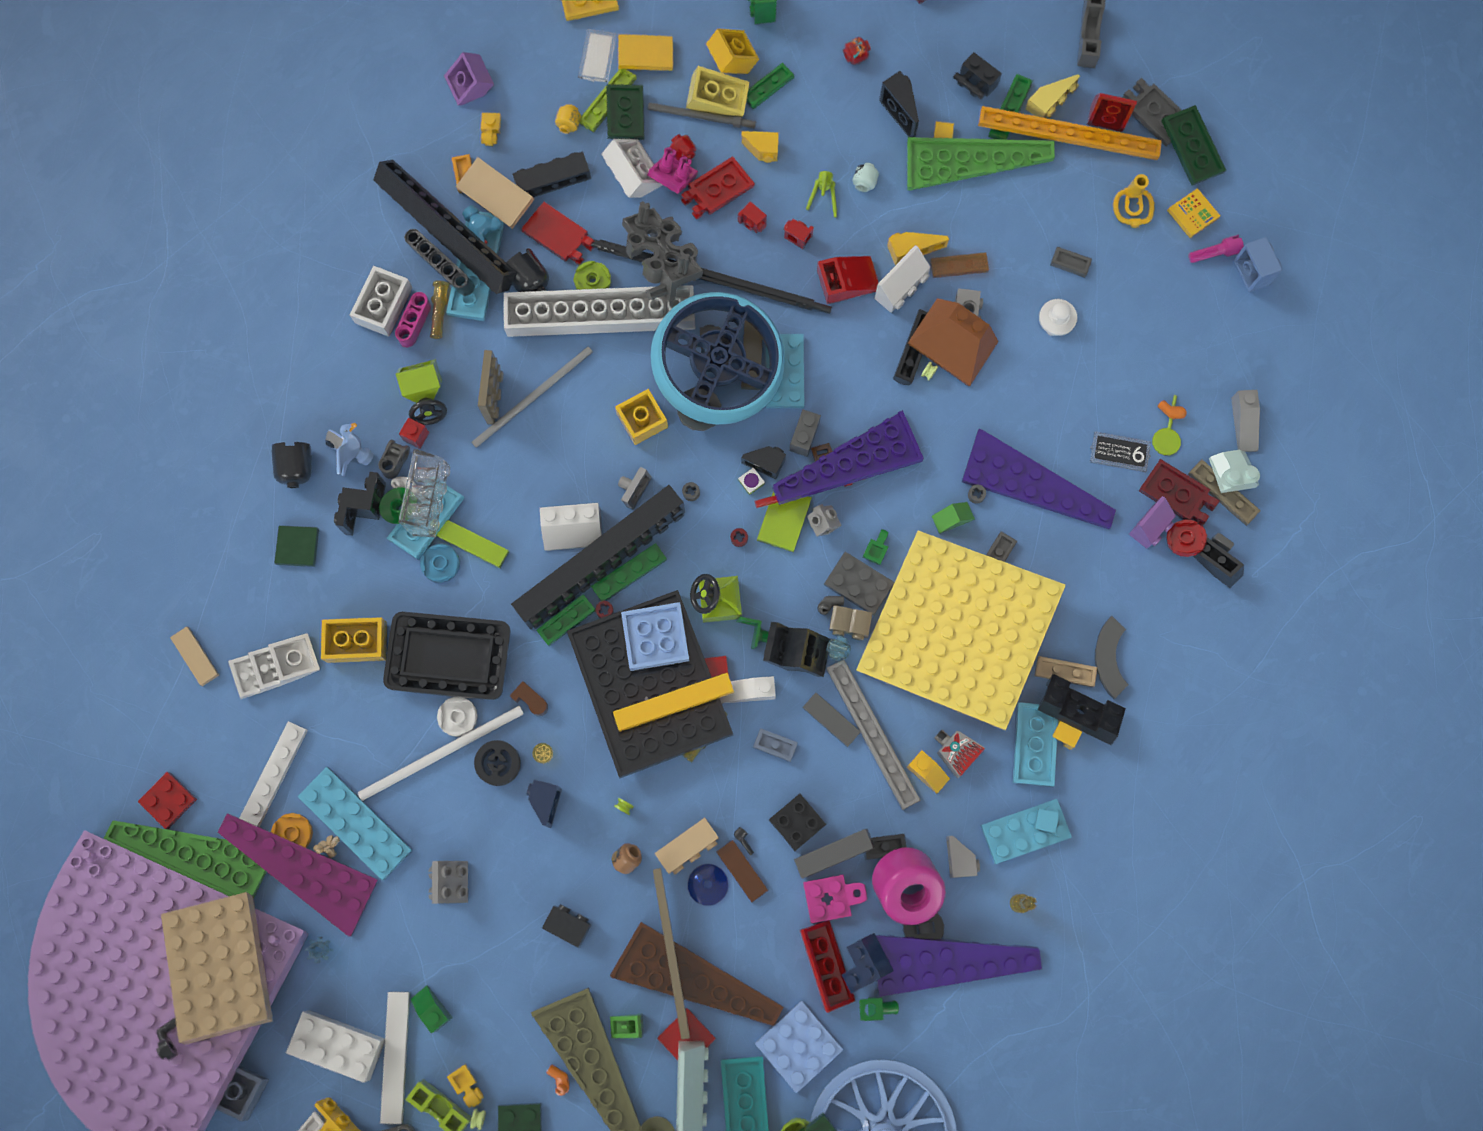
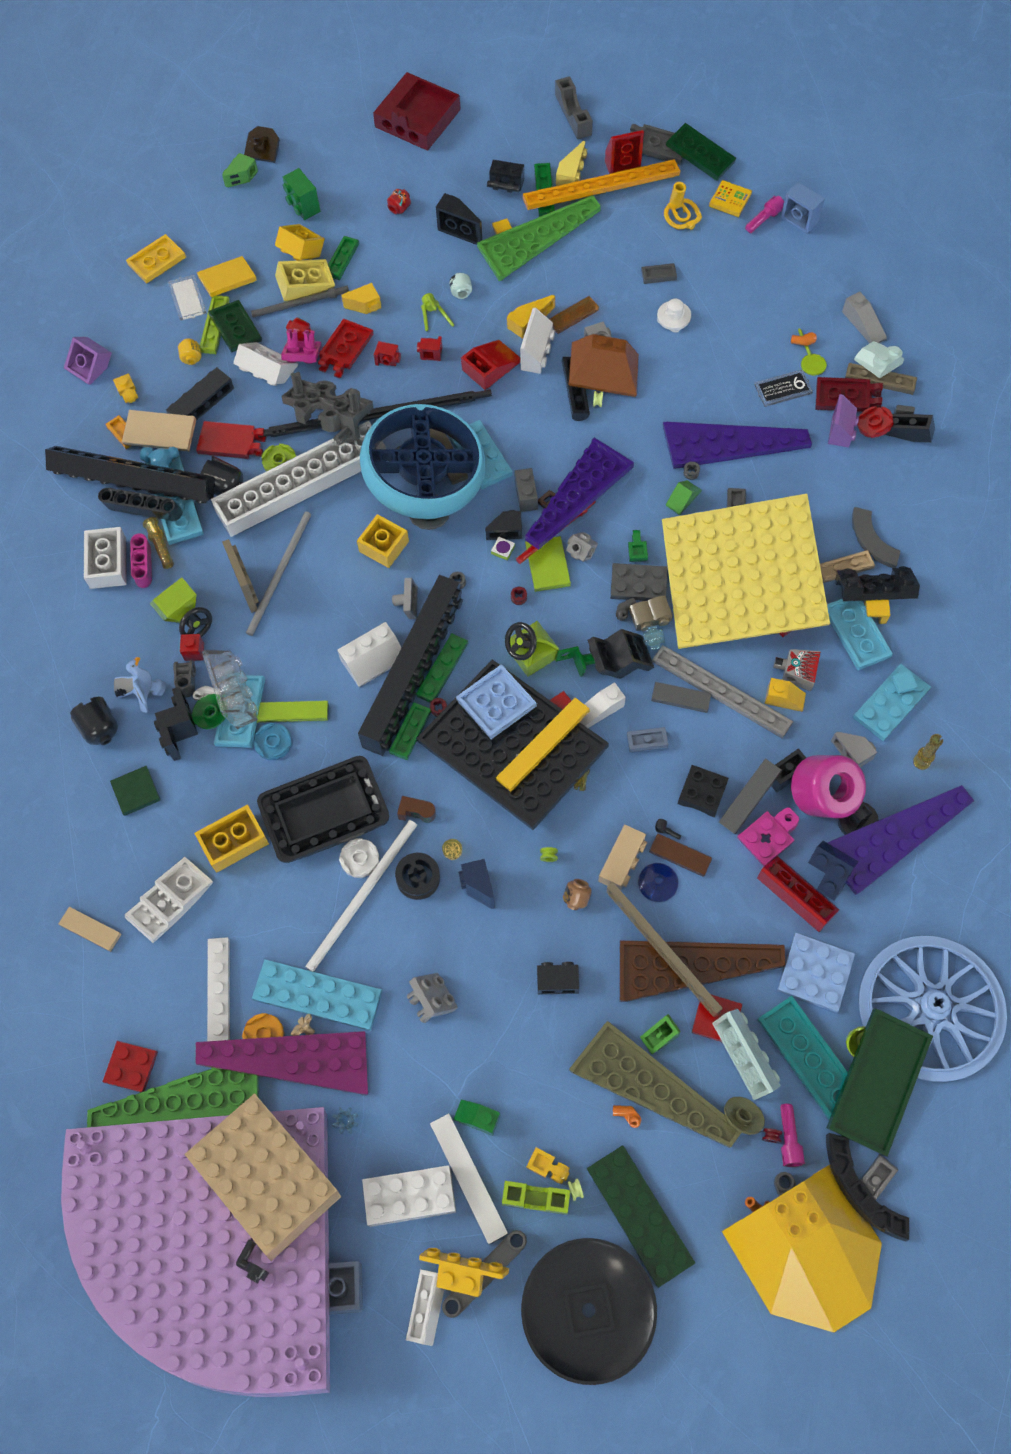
camera: 25 degrees left, 10 degrees down
(877, 1008) = (862, 902): green bracket -> none

